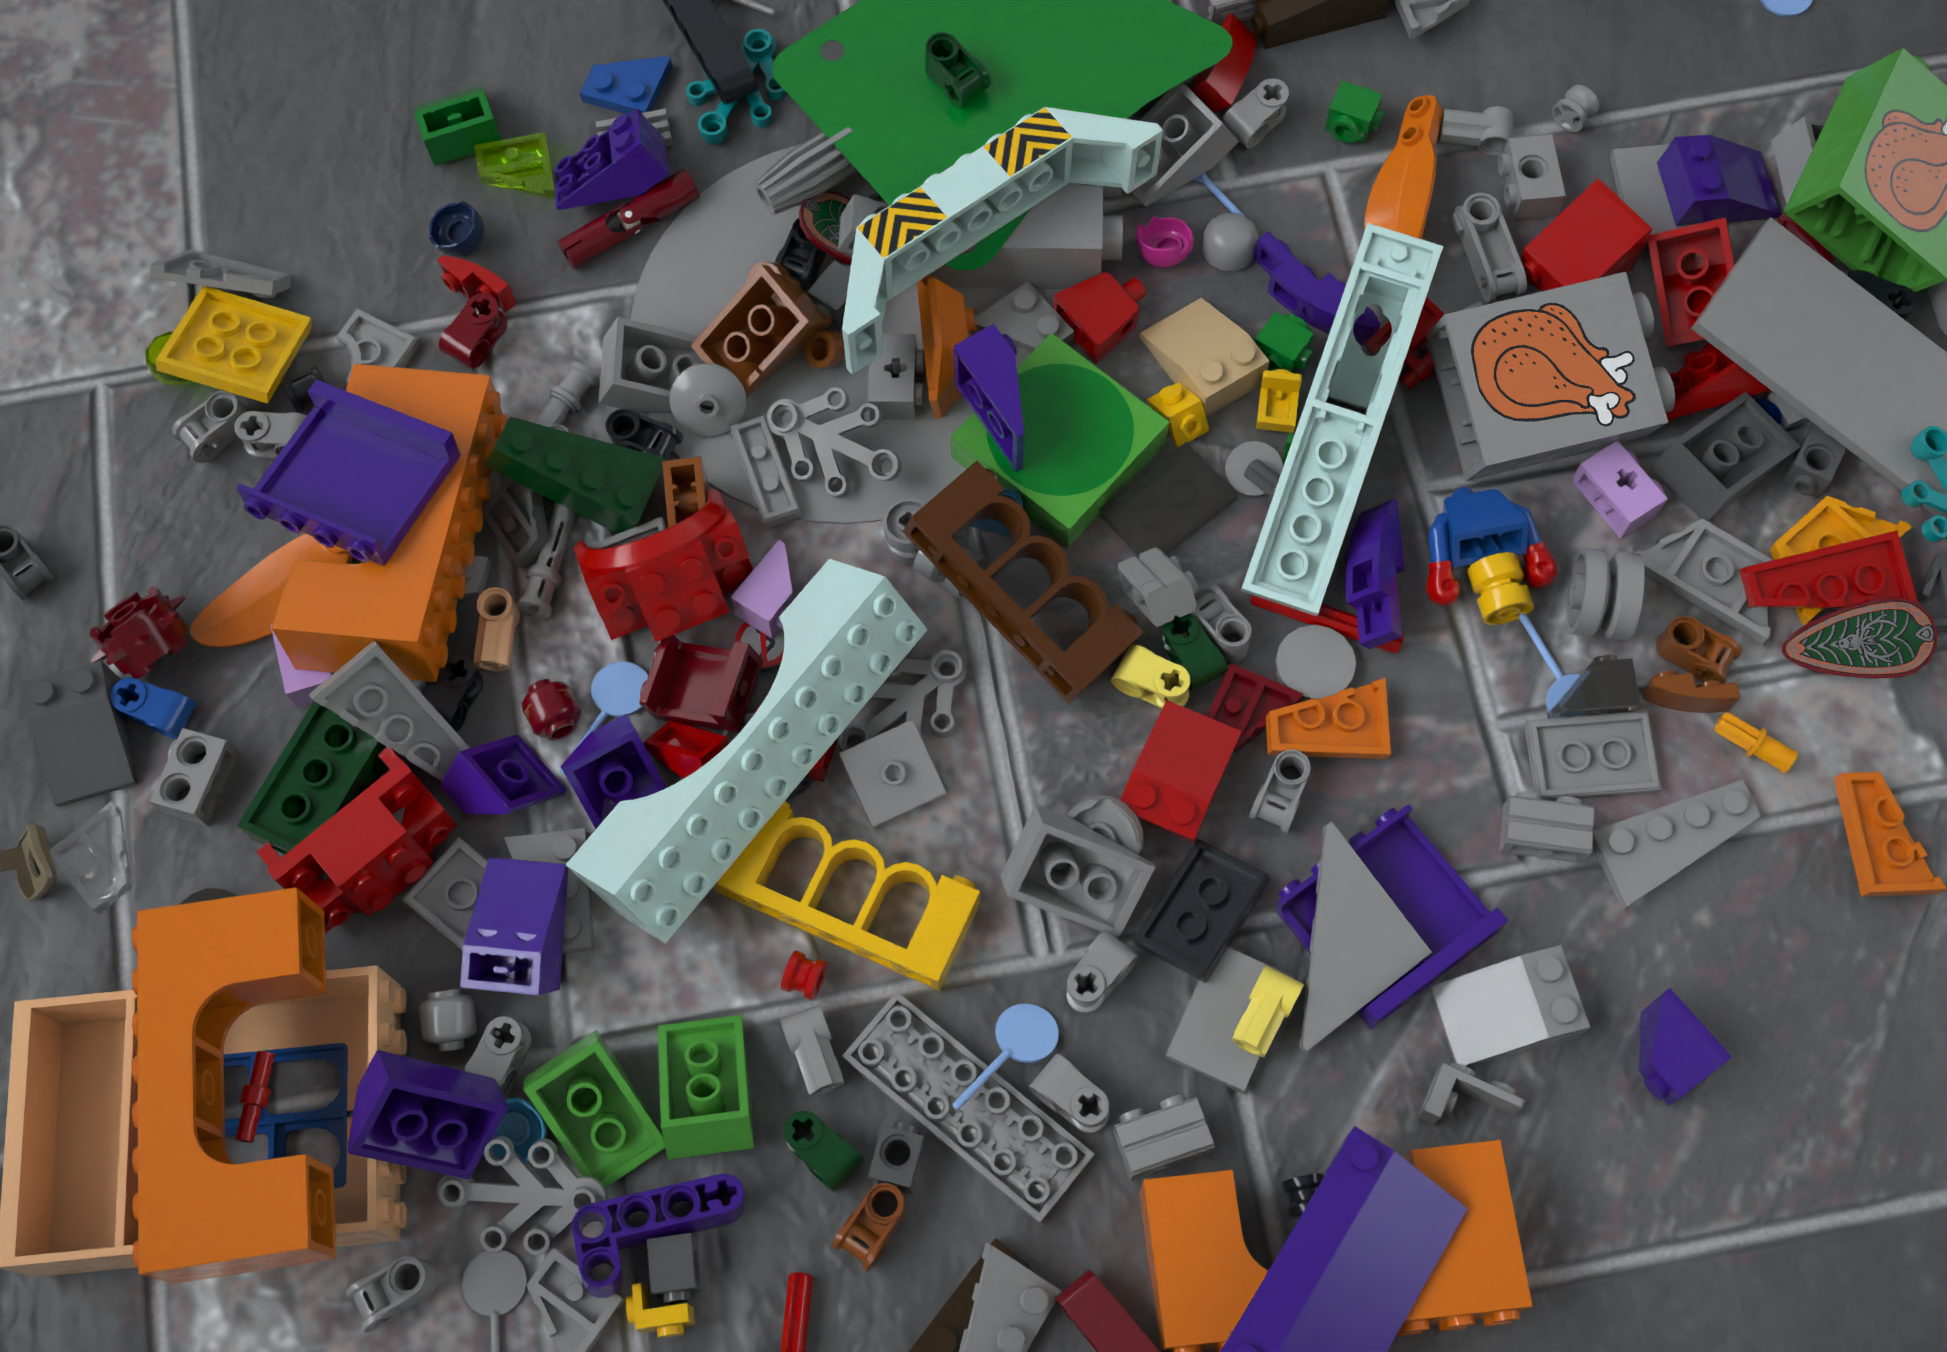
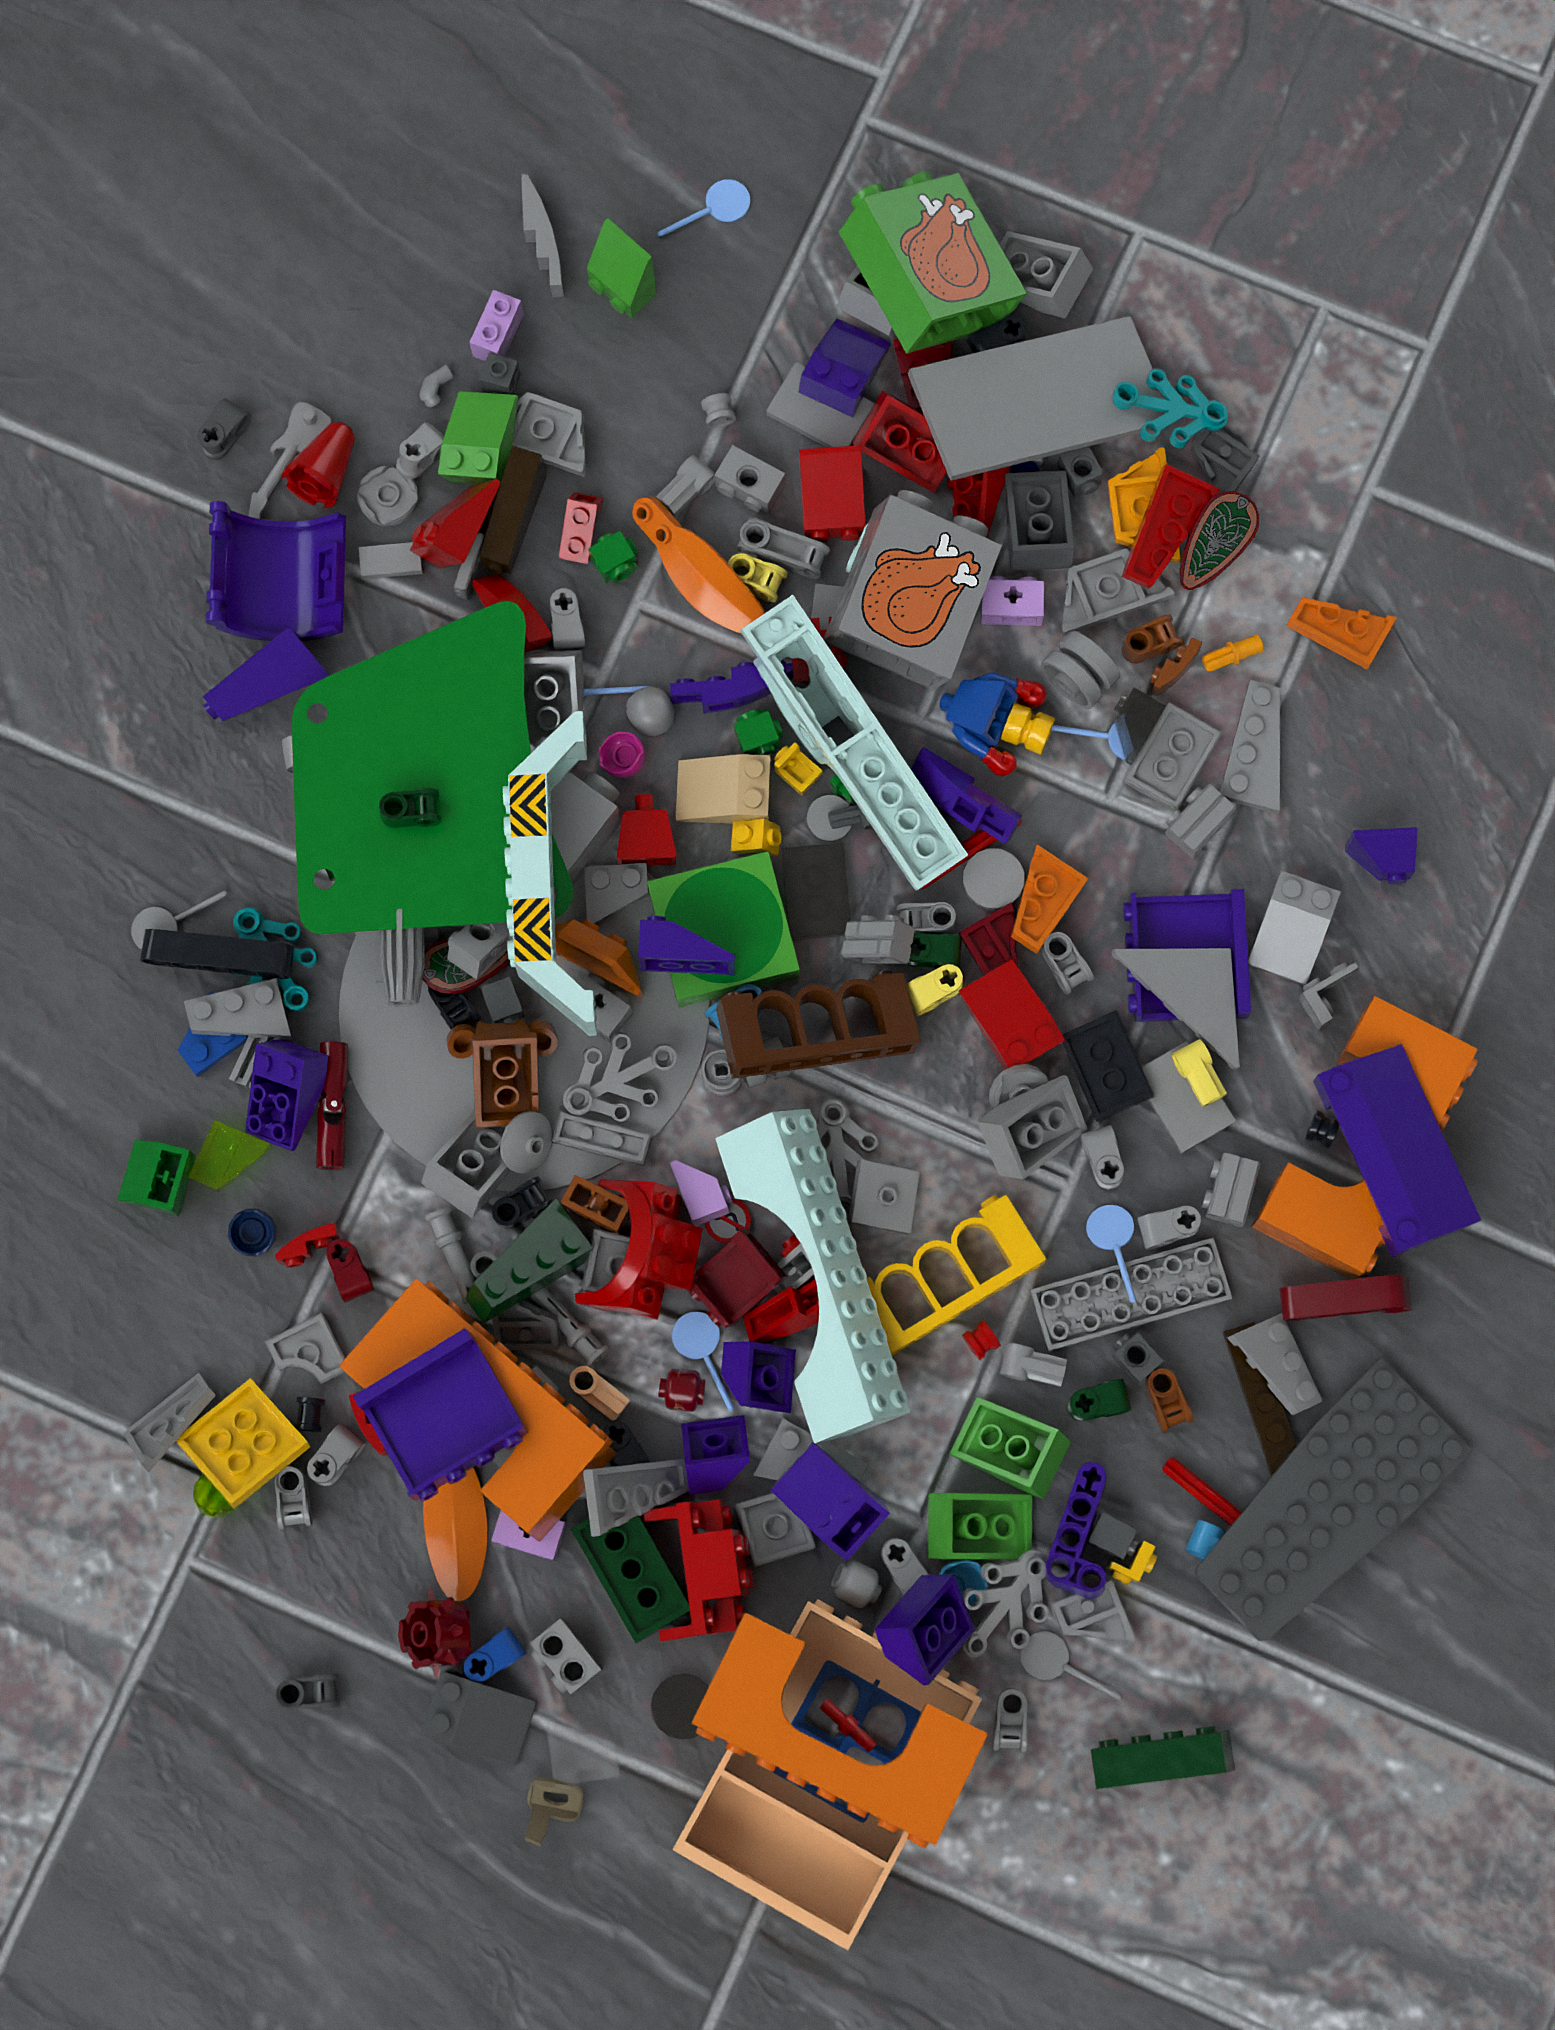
camera: 55 degrees left, 10 degrees up
(667, 89) = (240, 1011): none -> light grey wing
(1359, 63) = (579, 526): none -> bracket
(1454, 251) = (759, 576): none -> light yellow piece

